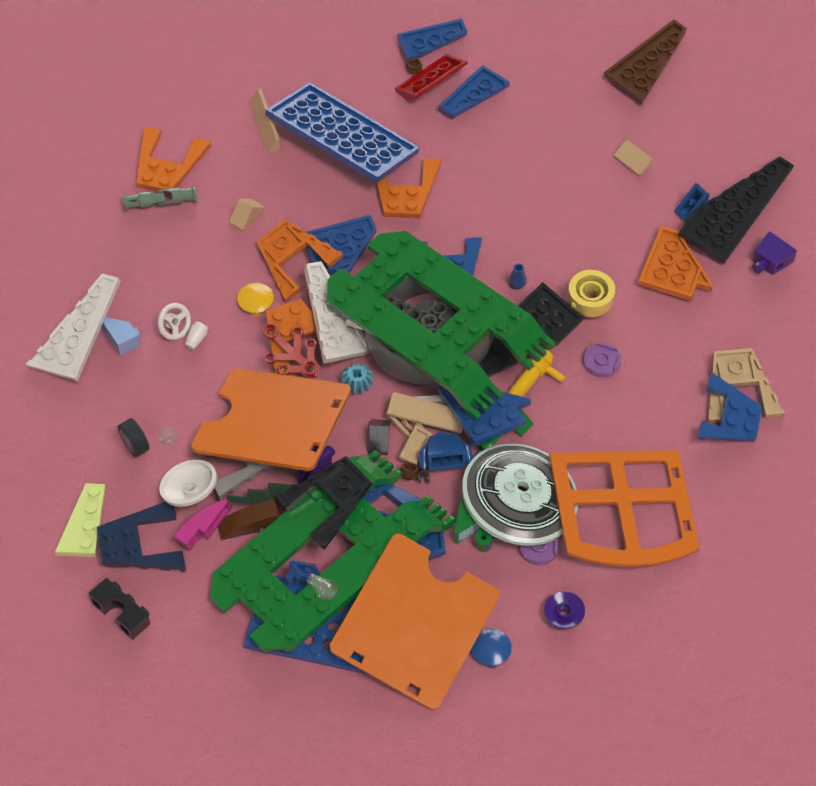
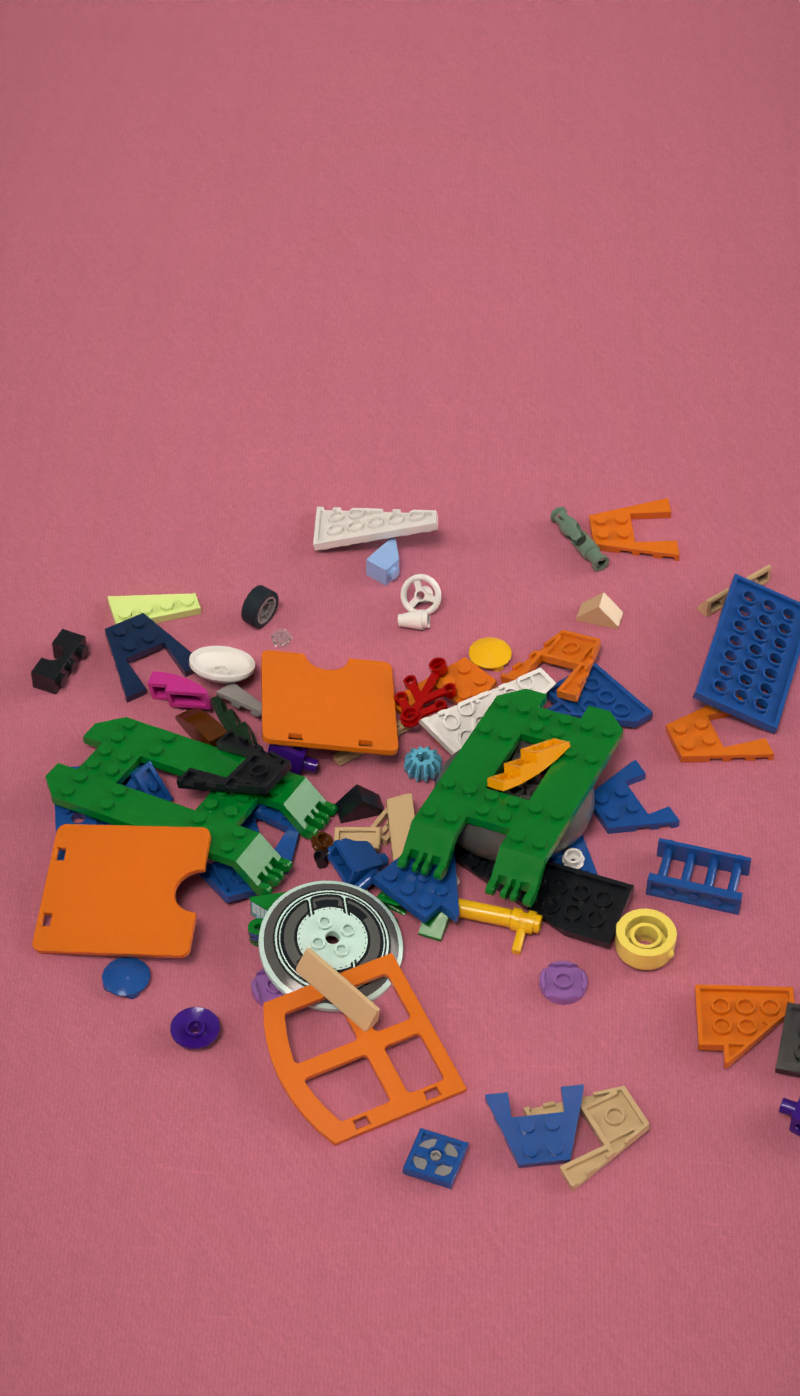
camera: 70 degrees right, 10 degrees down
(324, 588) = (126, 795): clear cone -> none
(423, 298) = (532, 762): none -> light orange slope
(518, 278) = (637, 867): blue cone -> none
(549, 257) = (693, 893): none -> blue fence
(576, 497) = (338, 990): none -> tan slope
(735, 487) = (435, 1158): none -> blue piece

